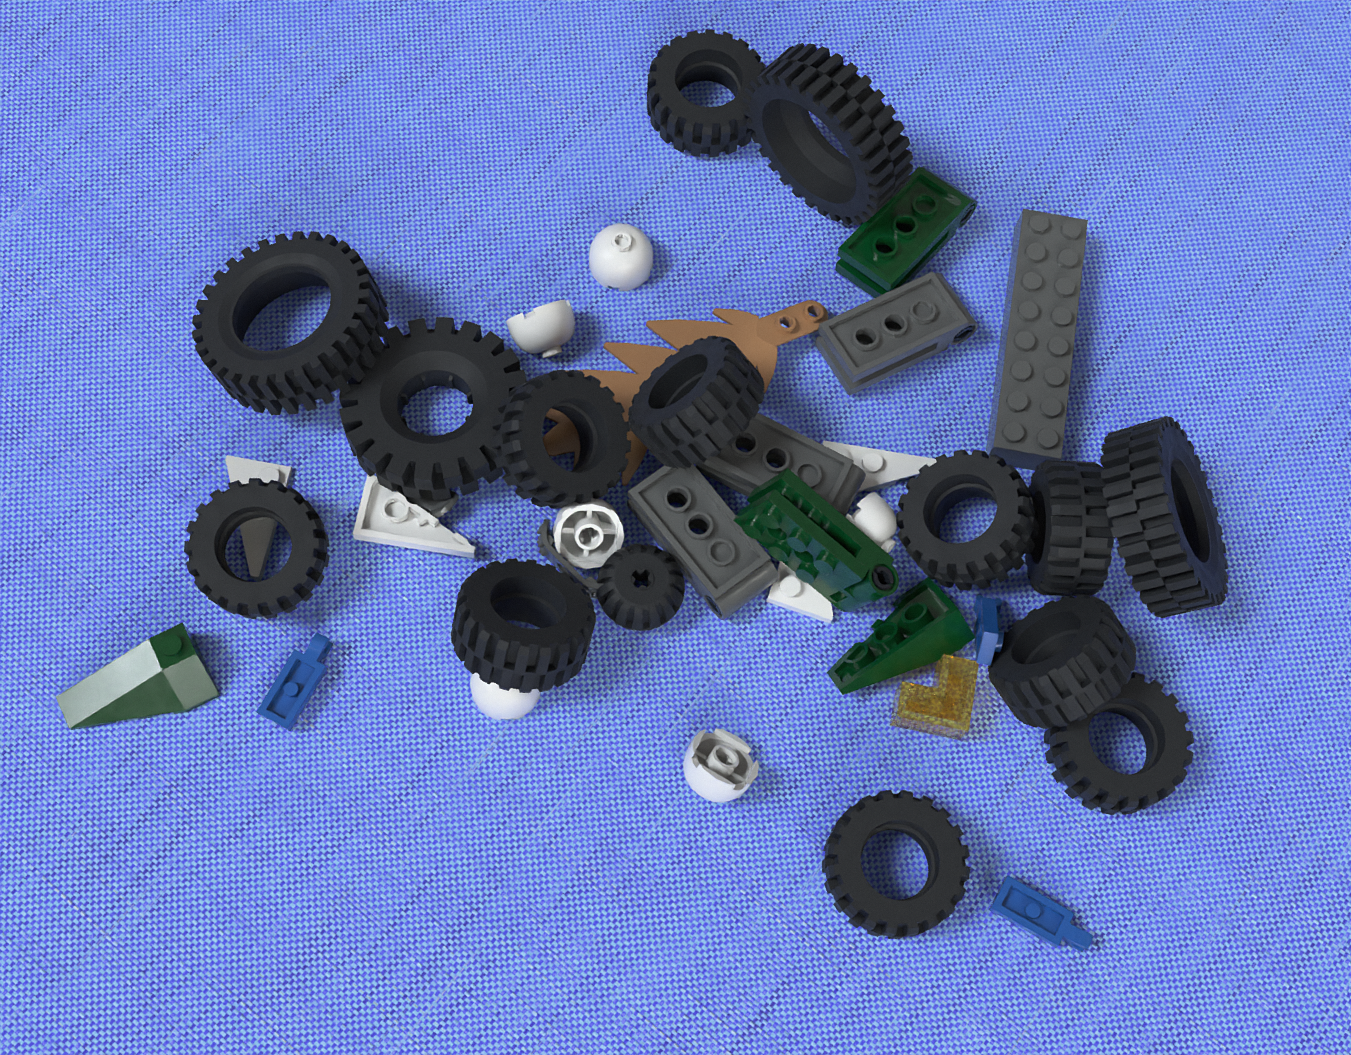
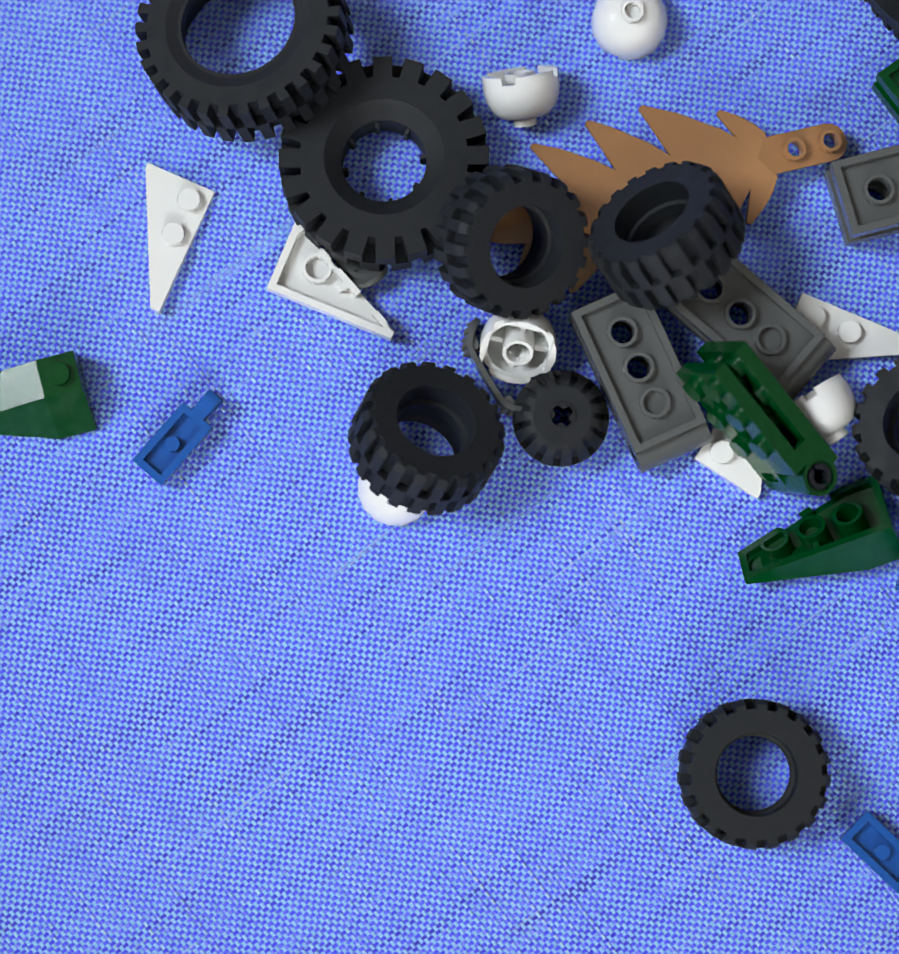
camera: 20 degrees right, 15 degrees up
(224, 515) = (111, 293): black tyre -> none
(719, 766) = (597, 630): white cylinder -> none
(943, 707) = (853, 622): clear yellow brick -> none

